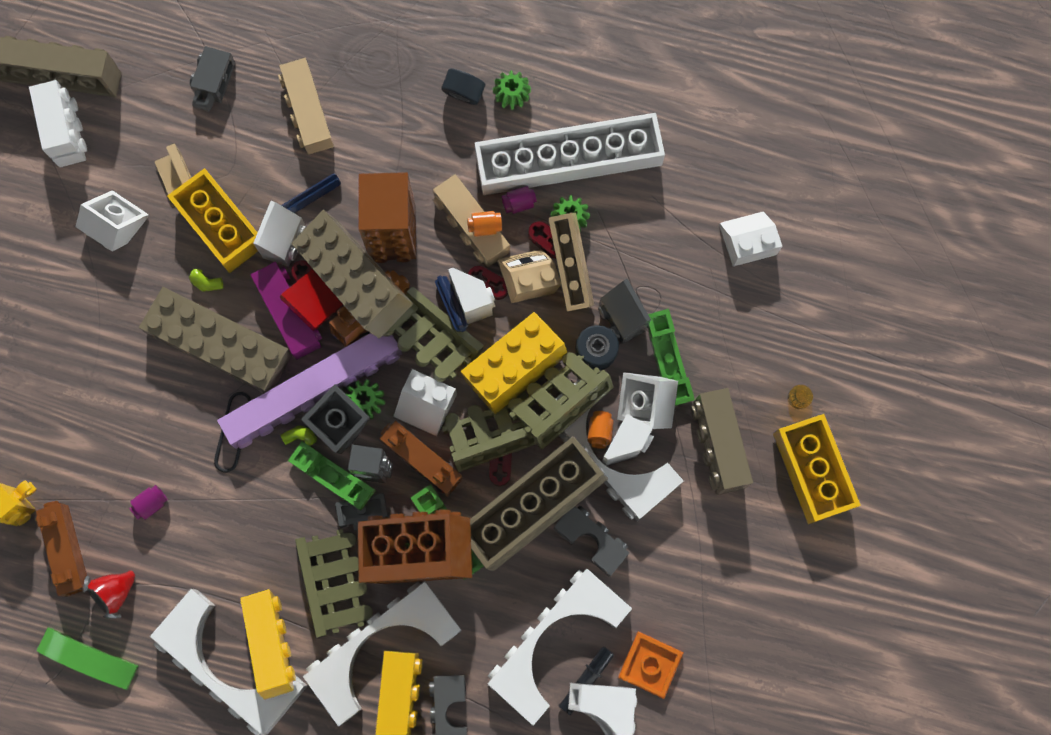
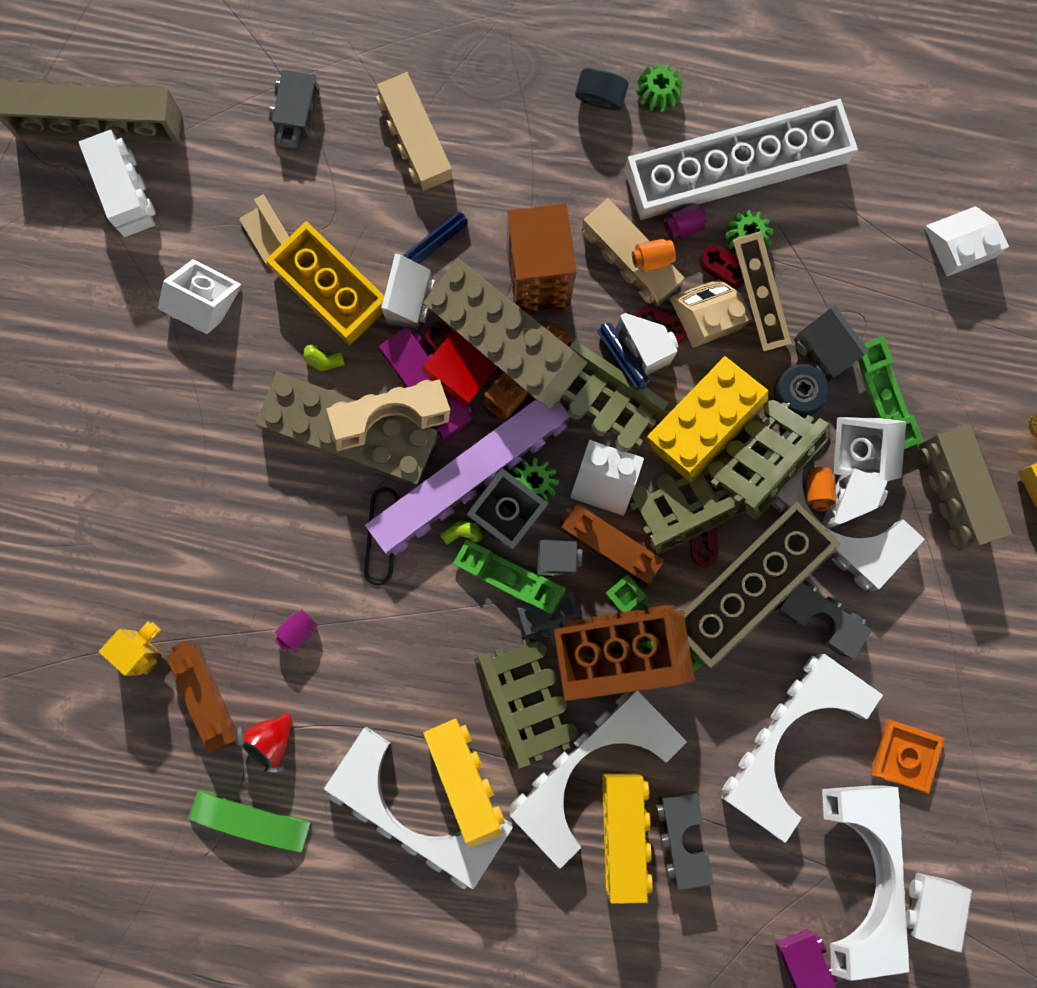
camera: 10 degrees left, 5 degrees up
(215, 332) = (421, 403): none -> tan arch
(590, 674) = (838, 778): black axle -> none

